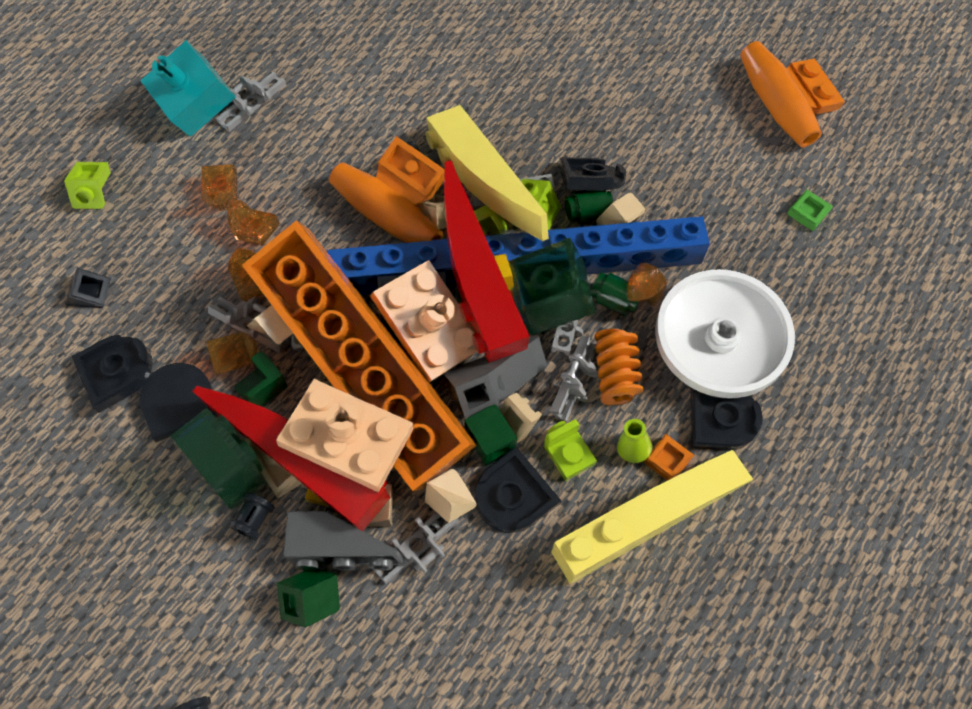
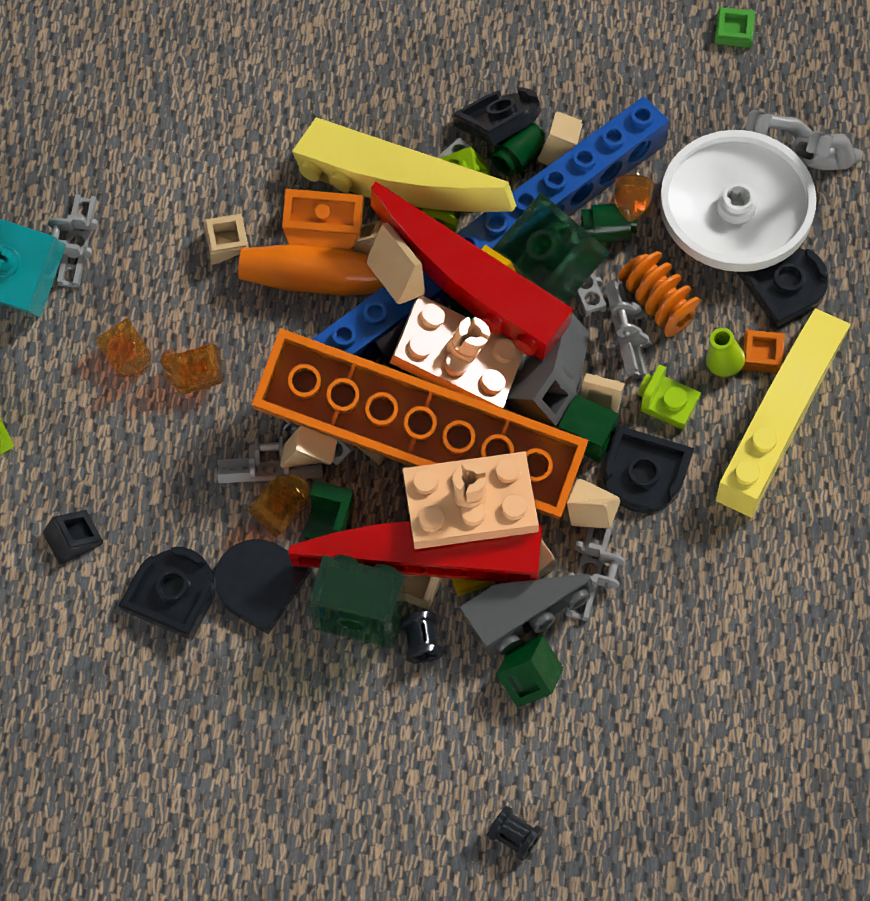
camera: 30 degrees left, 0 degrees up
(244, 283) = (233, 420): clear orange plate -> none
(342, 149) = (224, 237): none -> tan slope
(426, 232) = (396, 266): none -> tan slope
(809, 325) = (814, 148): none -> light grey piece

